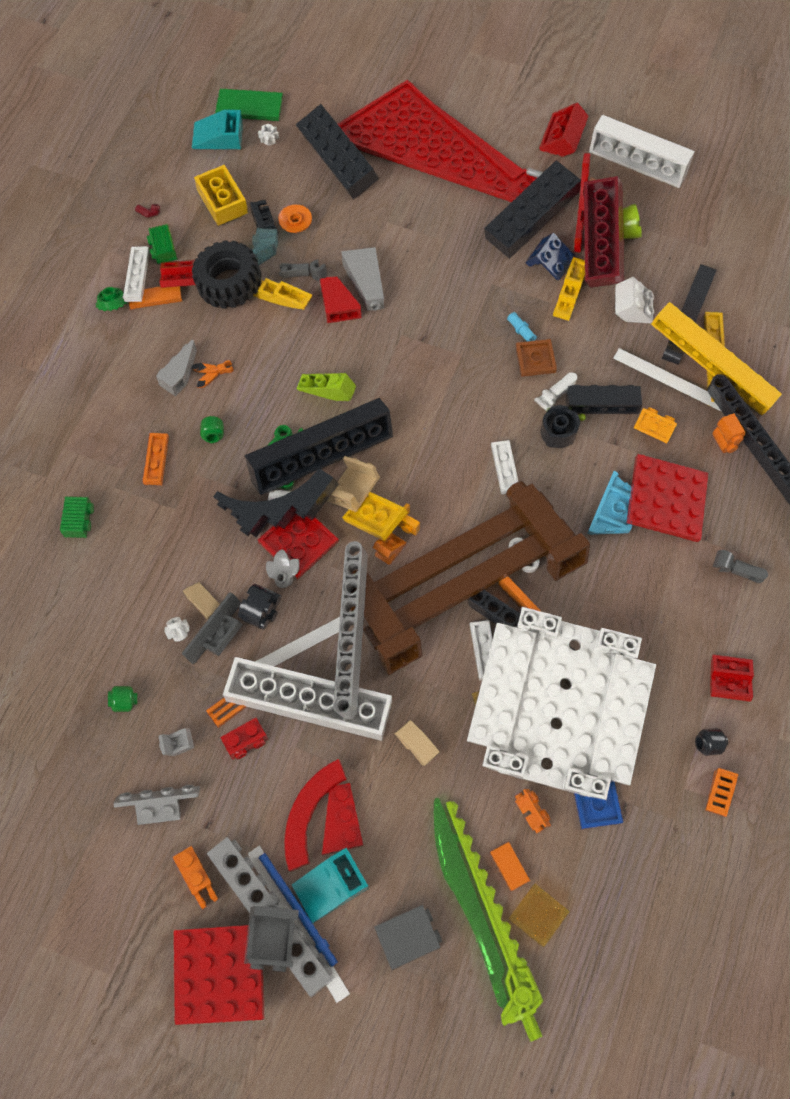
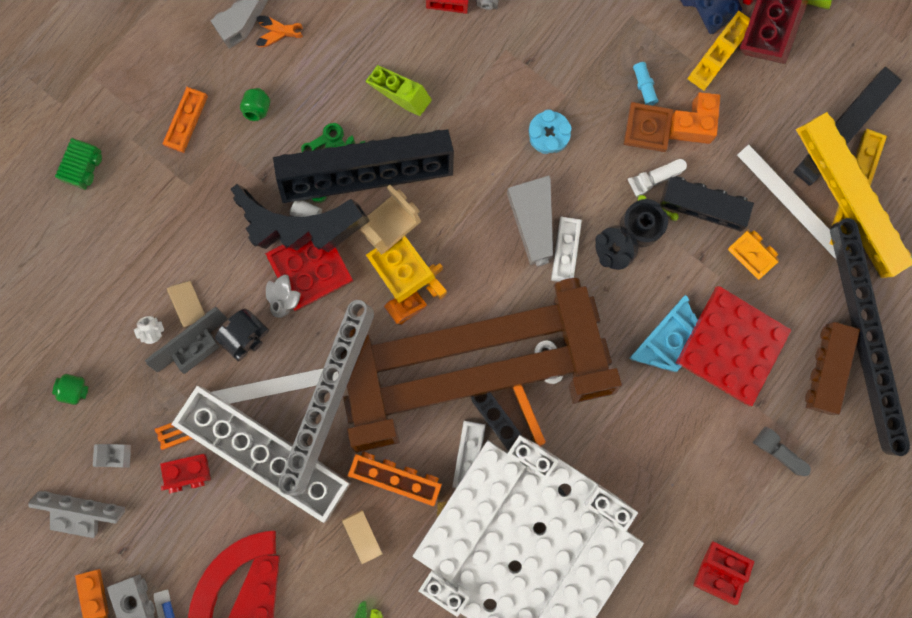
camera: 15 degrees right, 15 degrees up
(430, 684) = (396, 480): none -> orange brick
(459, 374) = (550, 144): none -> medium azure plate
(470, 449) = (534, 218): none -> light grey slope
(535, 453) = (608, 256): none -> black plate
(574, 343) = (699, 124): none -> orange brick
(634, 301) = (788, 91): white slope -> none
(729, 433) = (833, 294): orange brick -> none
(752, 492) = (832, 368): none -> reddish brown brick

